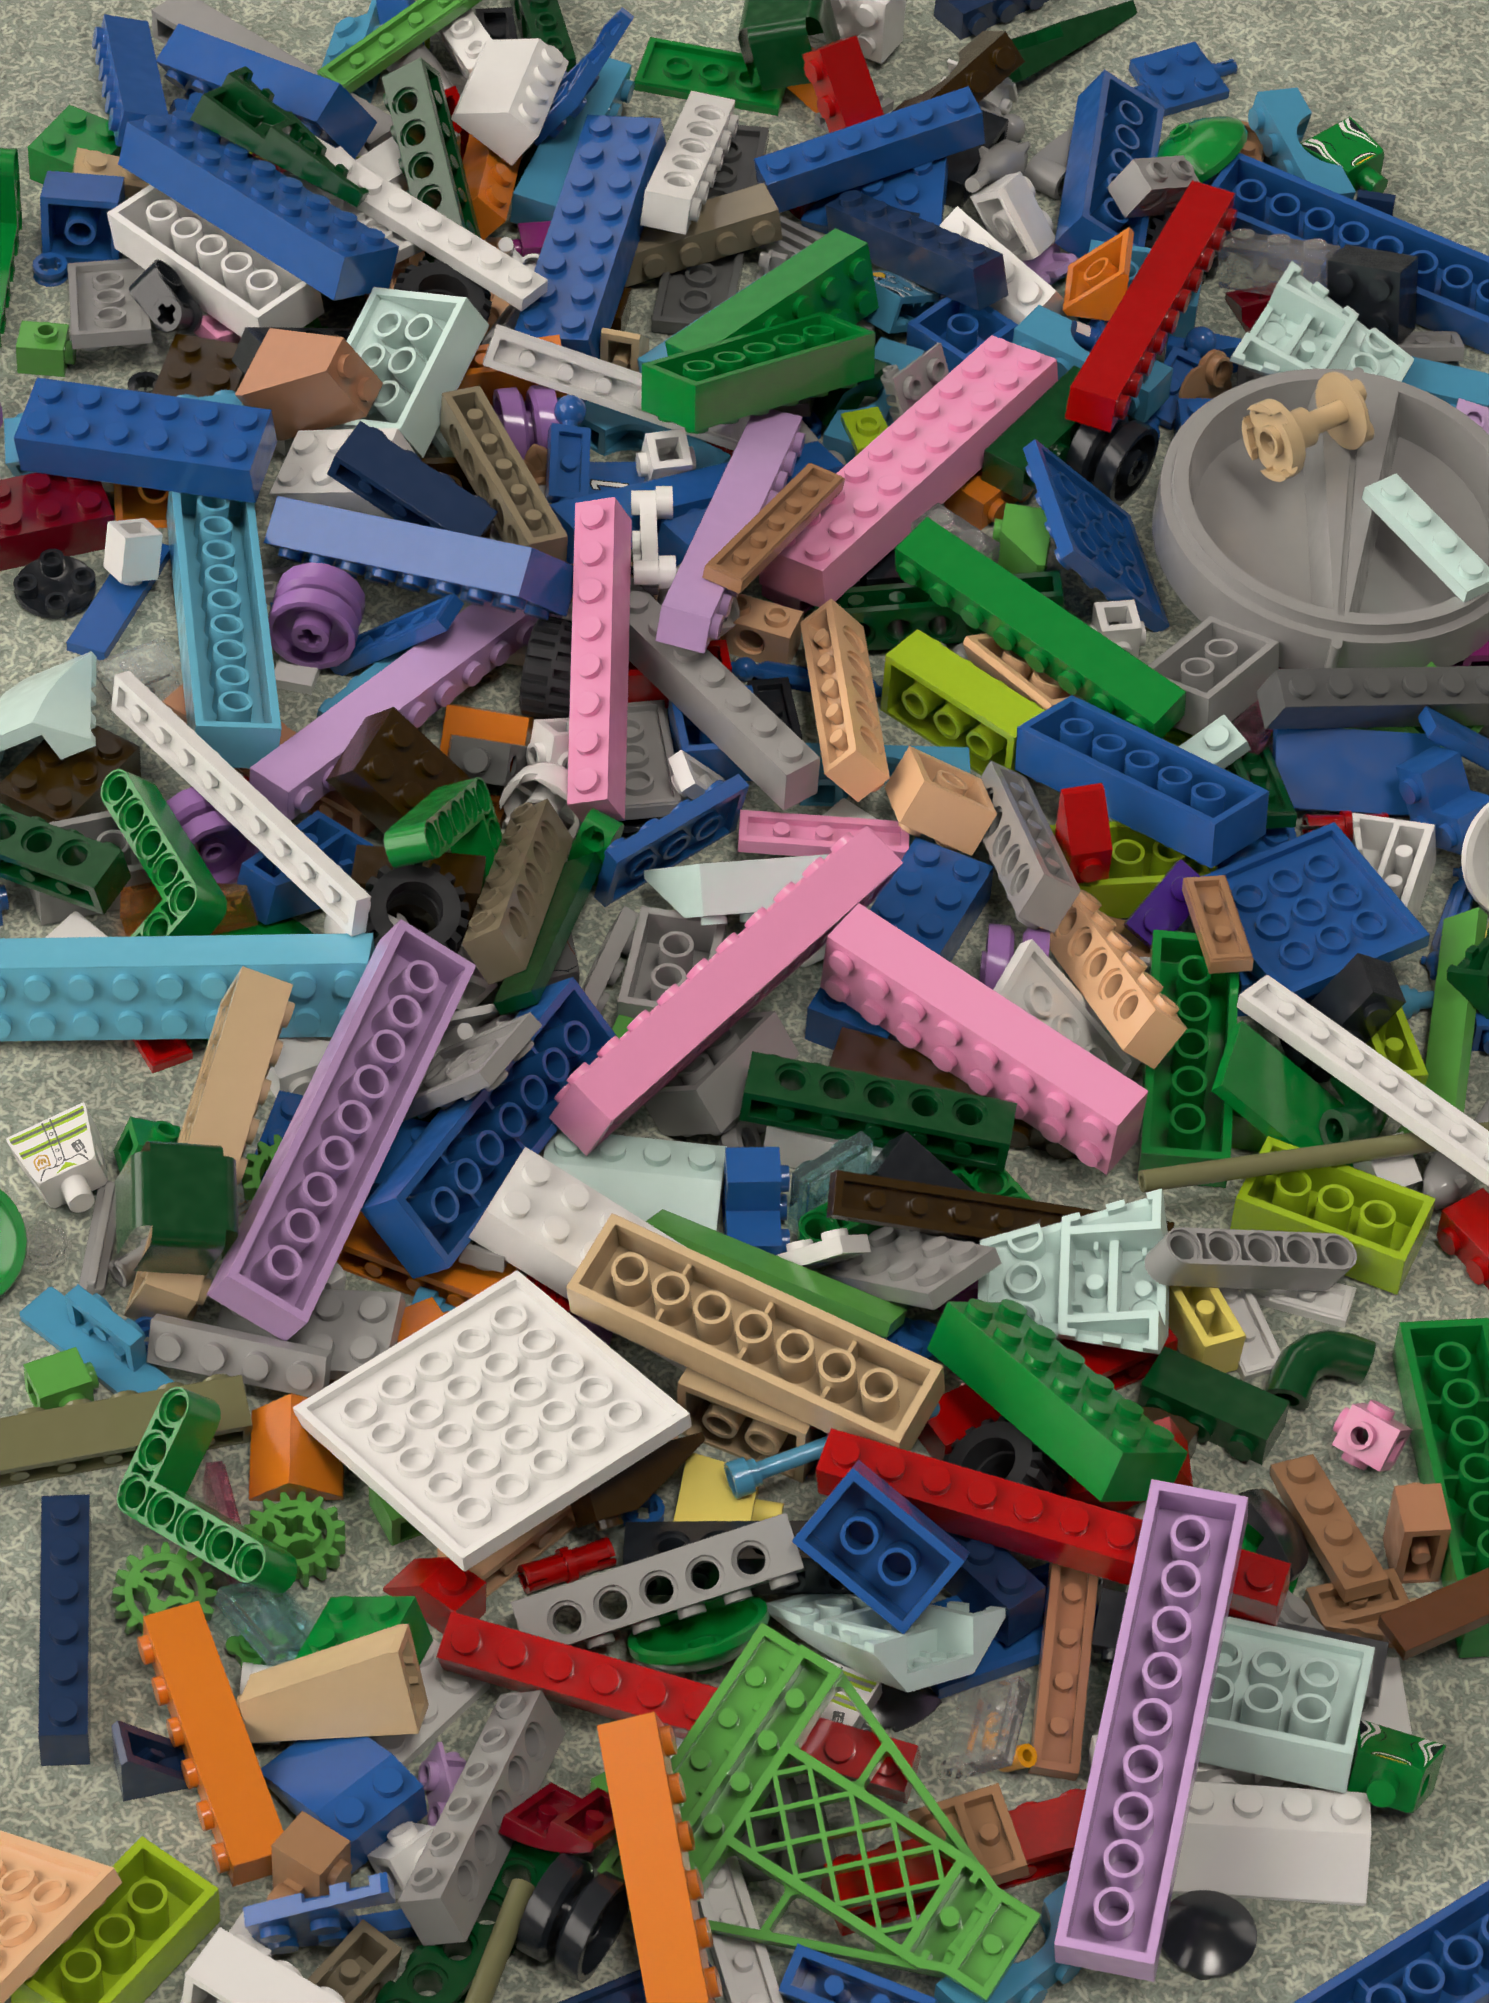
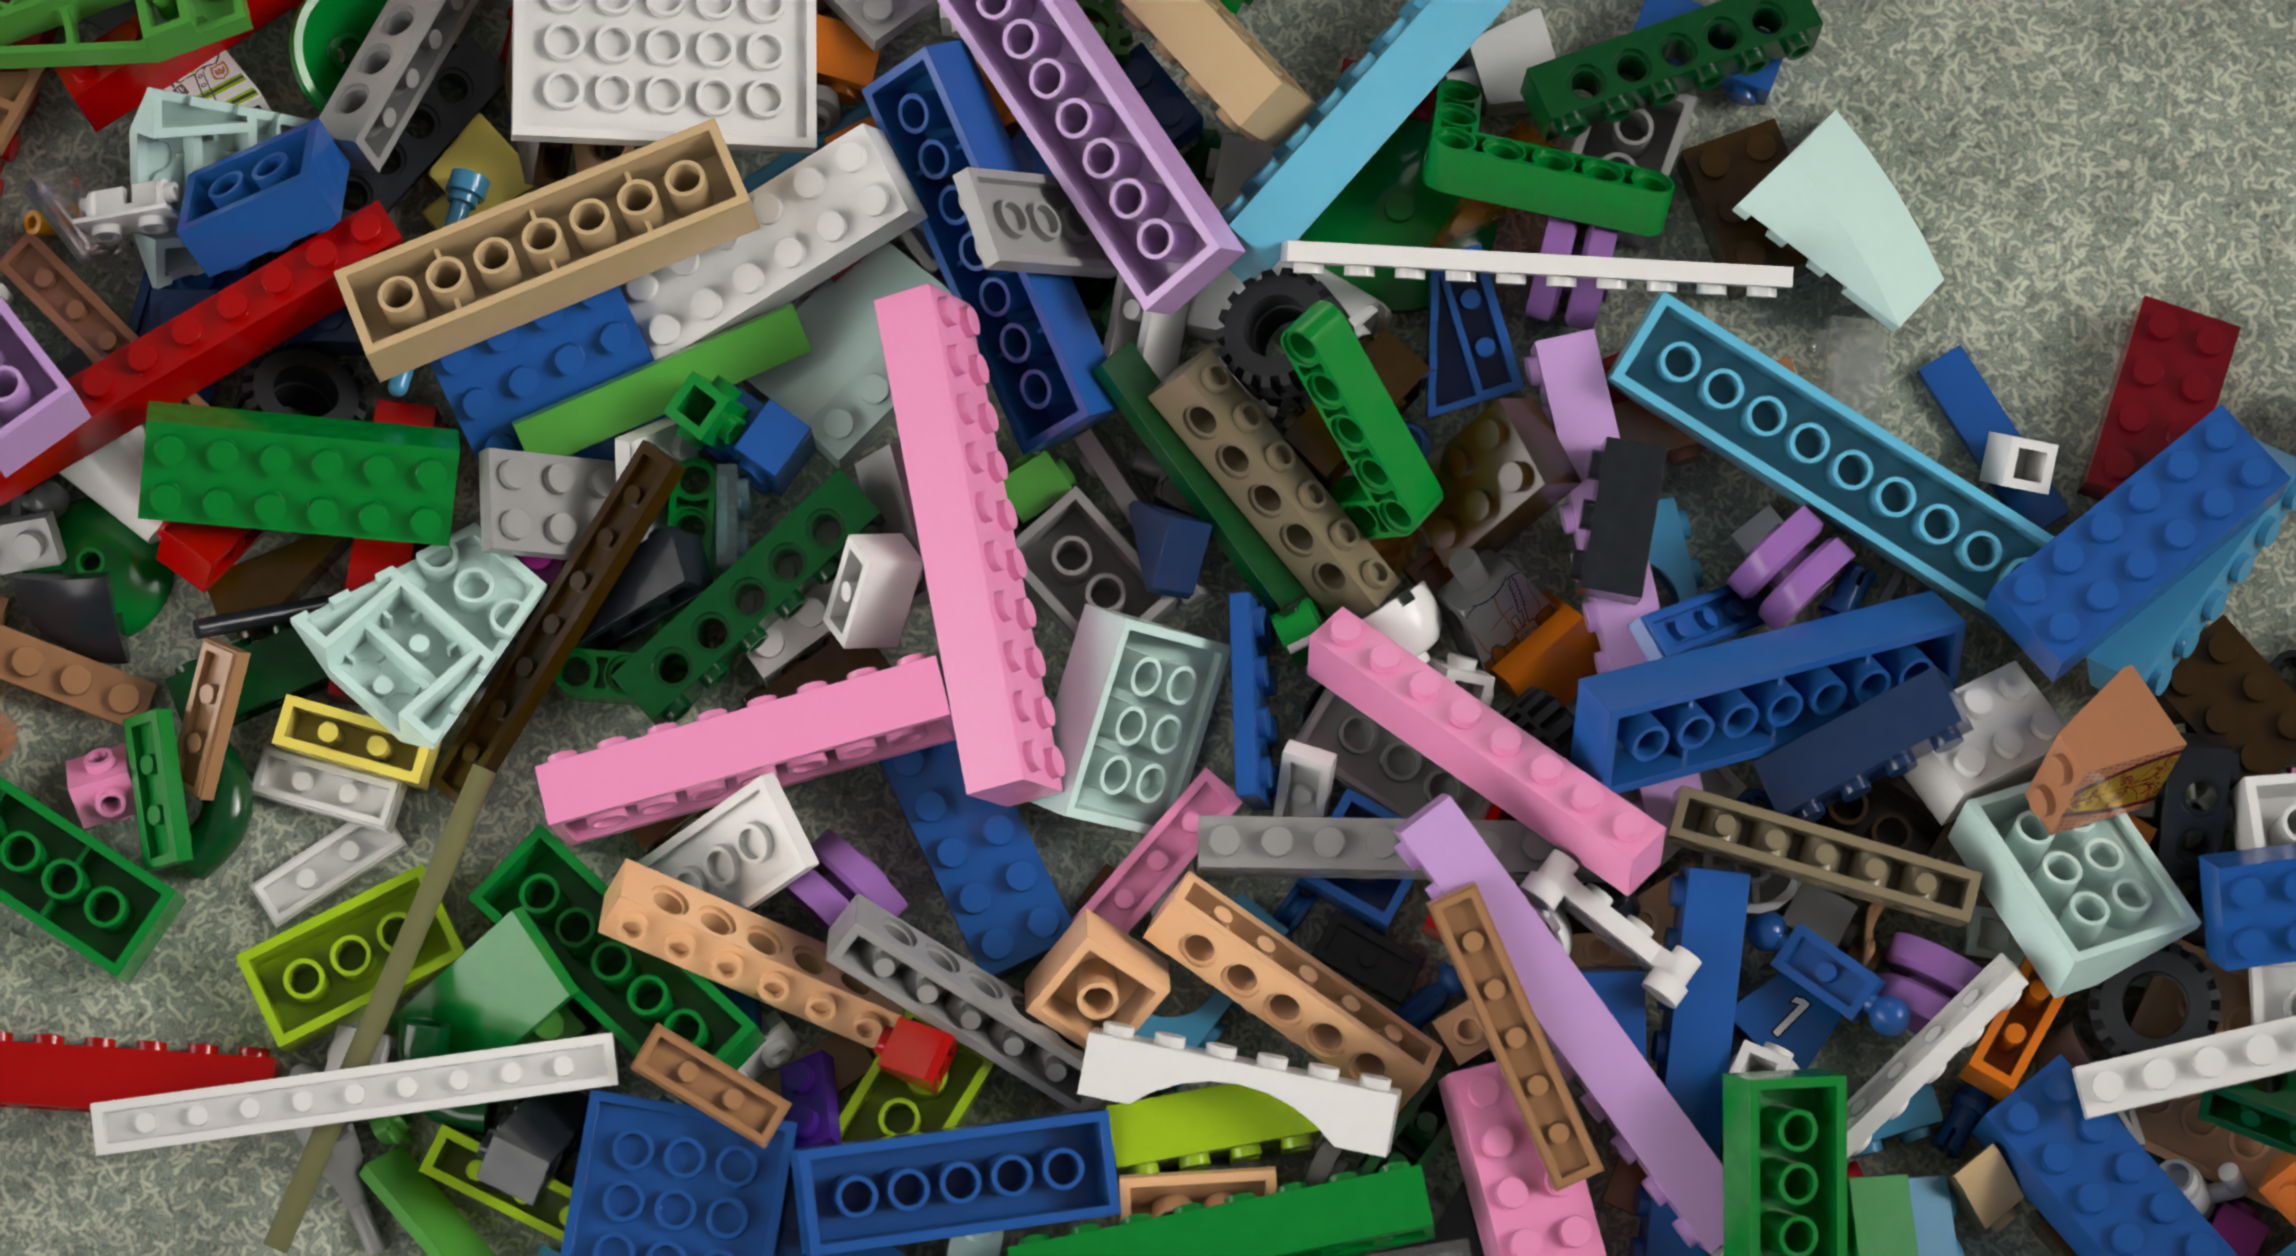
camera: 130 degrees right, 30 degrees up
(55, 585) = (2051, 388): black dish -> none
(375, 677) = (1619, 520): none -> black brick
(607, 926) = (1169, 547): none -> dark blue slope
(770, 1216) = (708, 411): none -> green brick
(805, 1037) = (873, 590): none -> white brick
(975, 727) = (1347, 1111): none -> white arch
(984, 1665) = (110, 216): none -> white hinge
(1170, 1401) = (255, 617): none -> black bar
(1250, 1259) = (354, 792): light grey beam -> none
(1268, 1376) = (210, 715): none -> medium nougat tile
(1345, 1377) = (158, 789): none -> green plate

